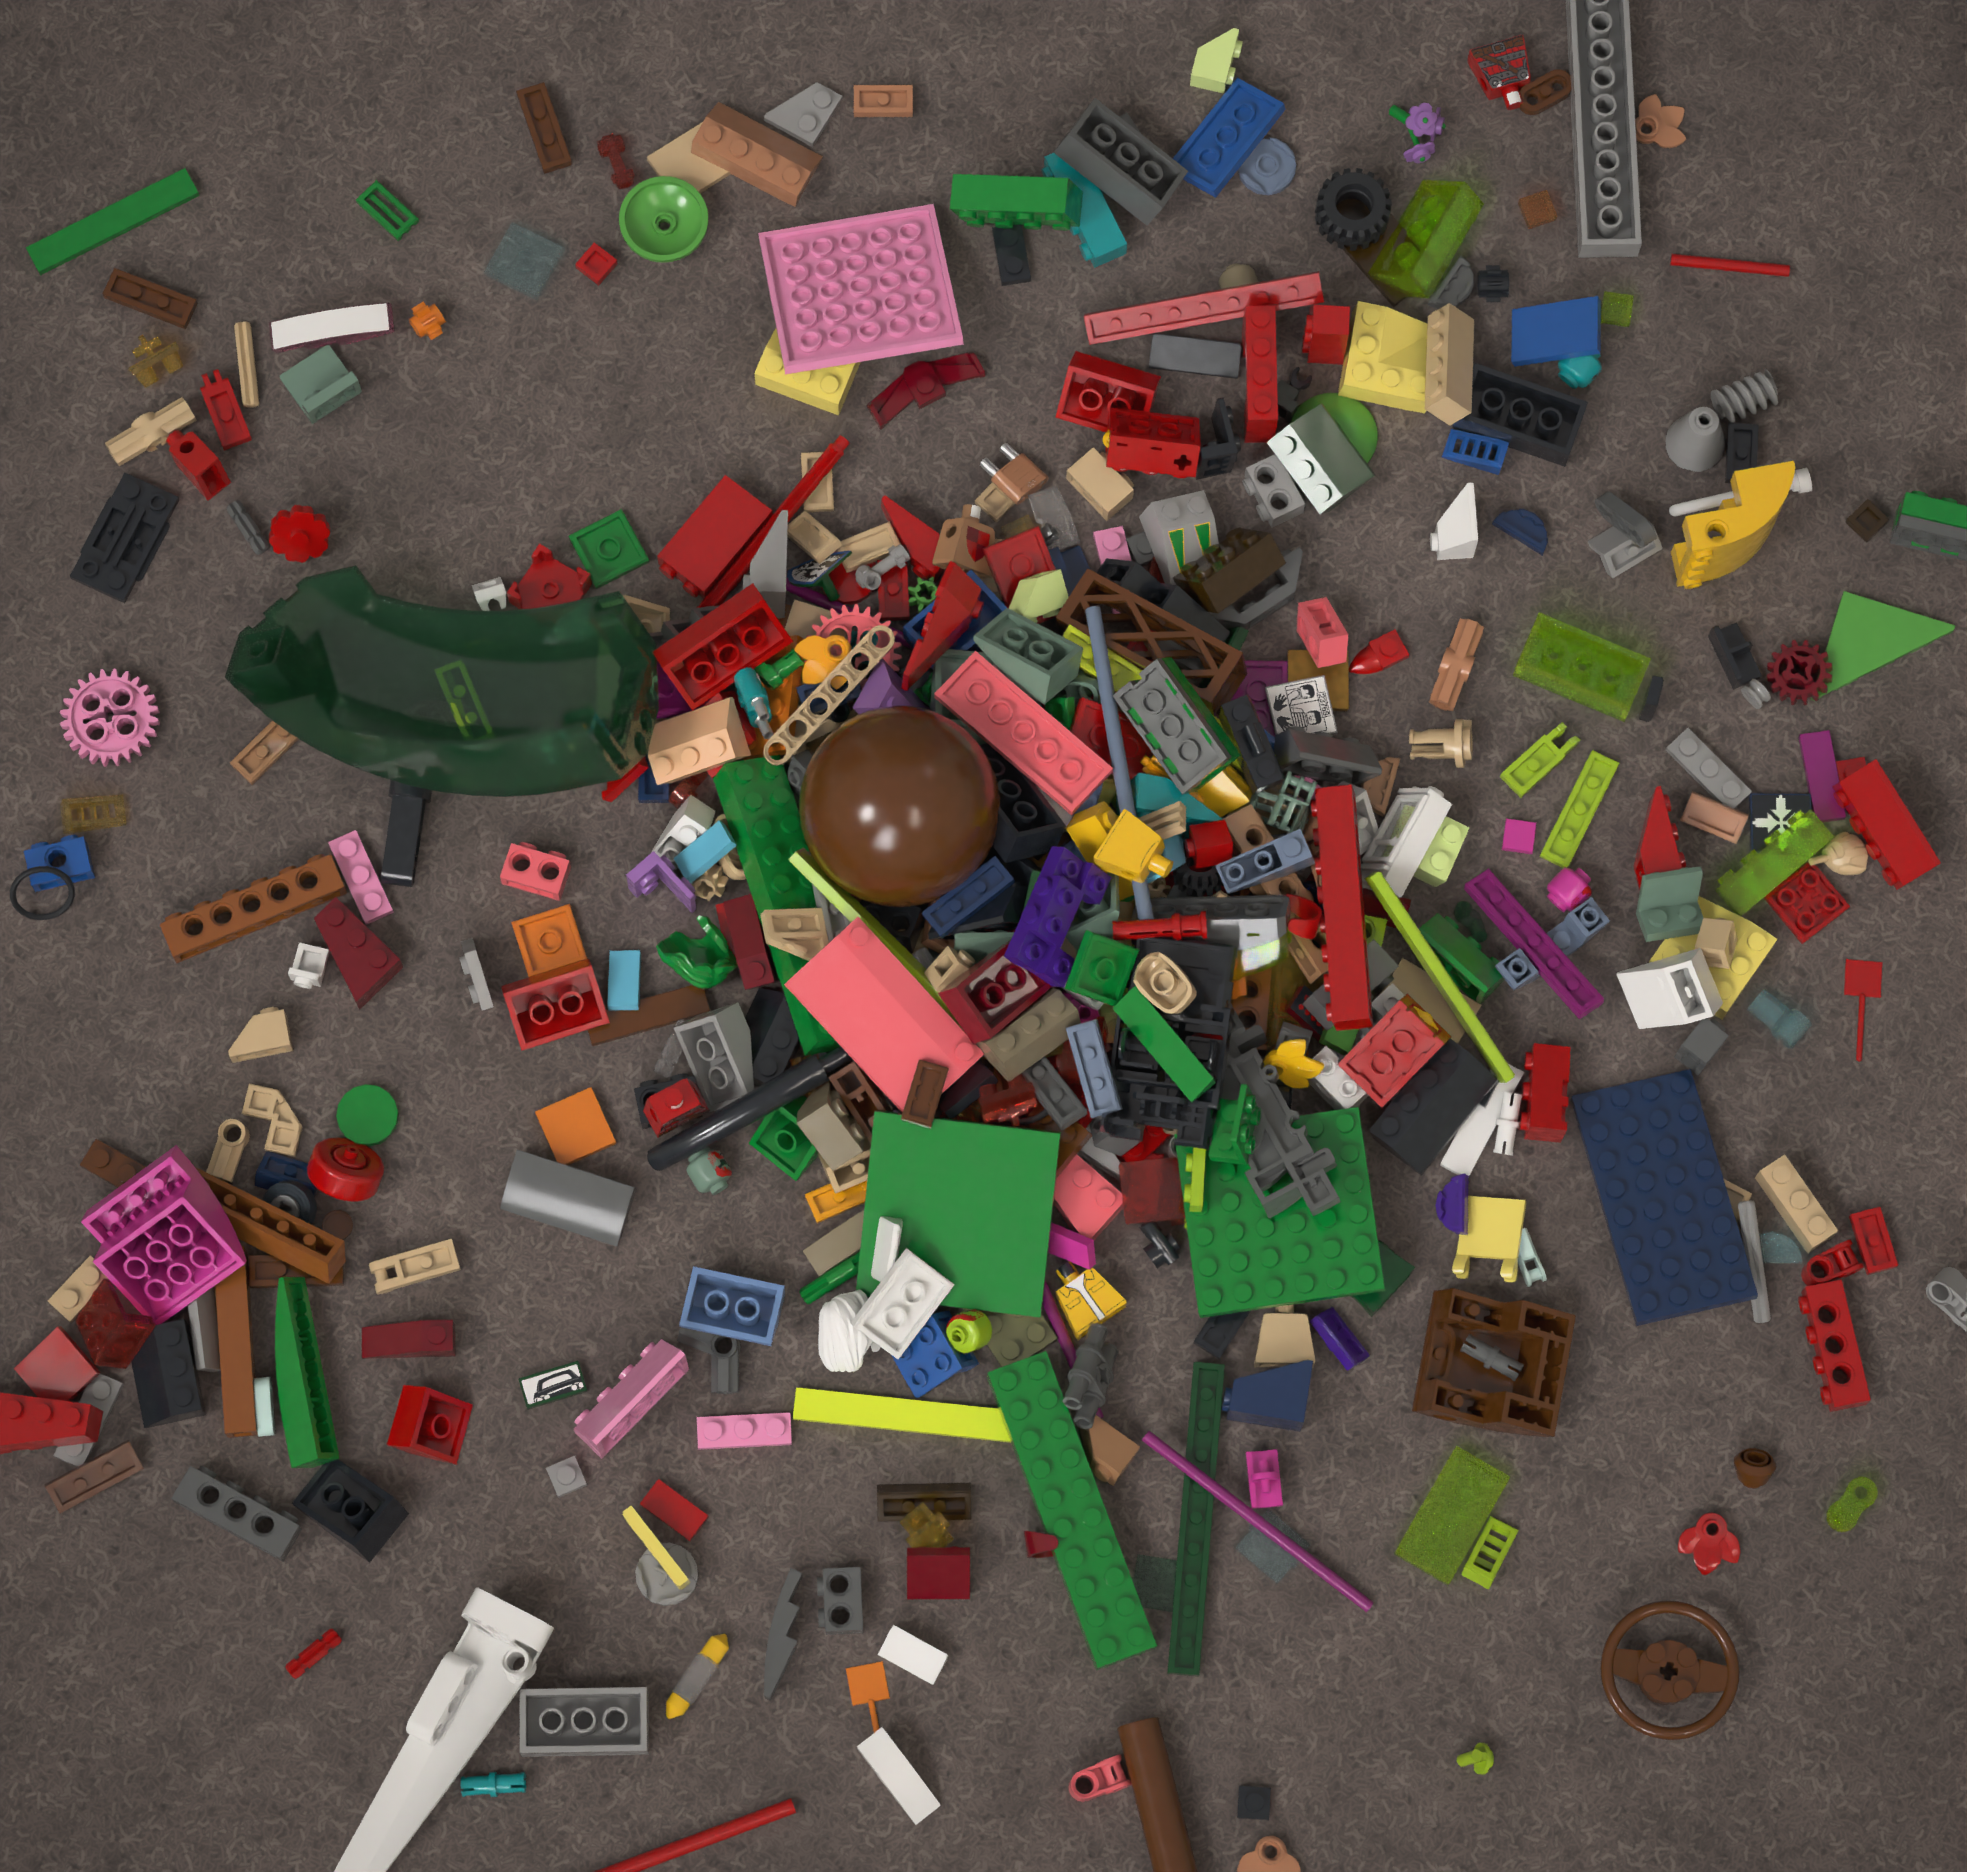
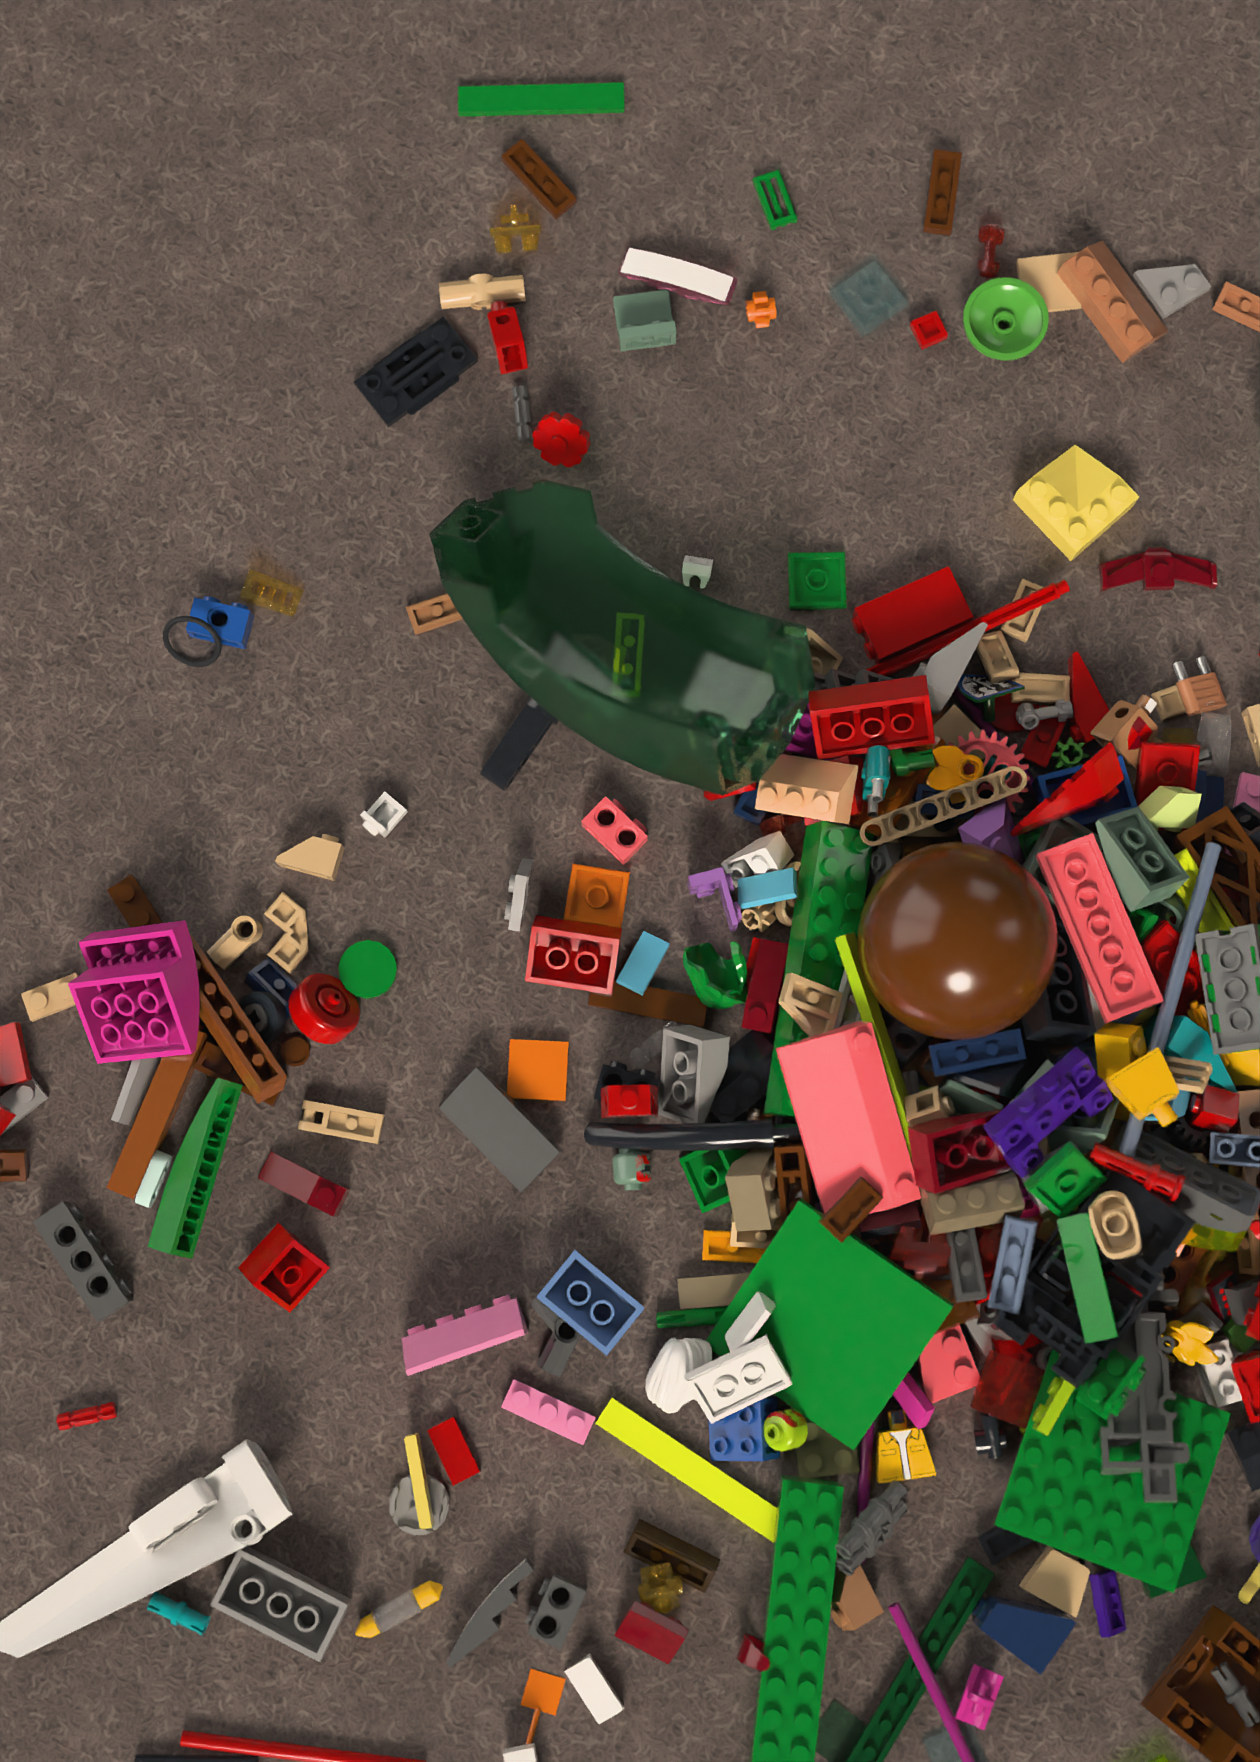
camera: 30 degrees right, 5 degrees up
(107, 691) = (316, 542): bright pink gear -> none
(109, 1331) = (53, 1052): clear red bracket -> none
(167, 1376) = (86, 1109): black slope -> none
(225, 411) = (552, 305): red hinge -> none
(242, 922) = (289, 727): dark orange brick -> none
(246, 364) = (591, 274): tan axle -> none
(351, 1508) = (180, 1307): black slope -> none
(357, 952) = (428, 826): dark red wedge -> none
(360, 877) = (465, 760): bright pink plate -> none
(548, 583) = (750, 586): red panel -> none
(552, 1385) = (405, 1286): tile -> none
(566, 1476) = (377, 1372): light grey plate -> none
(860, 289) = (1146, 461): bright pink plate -> none

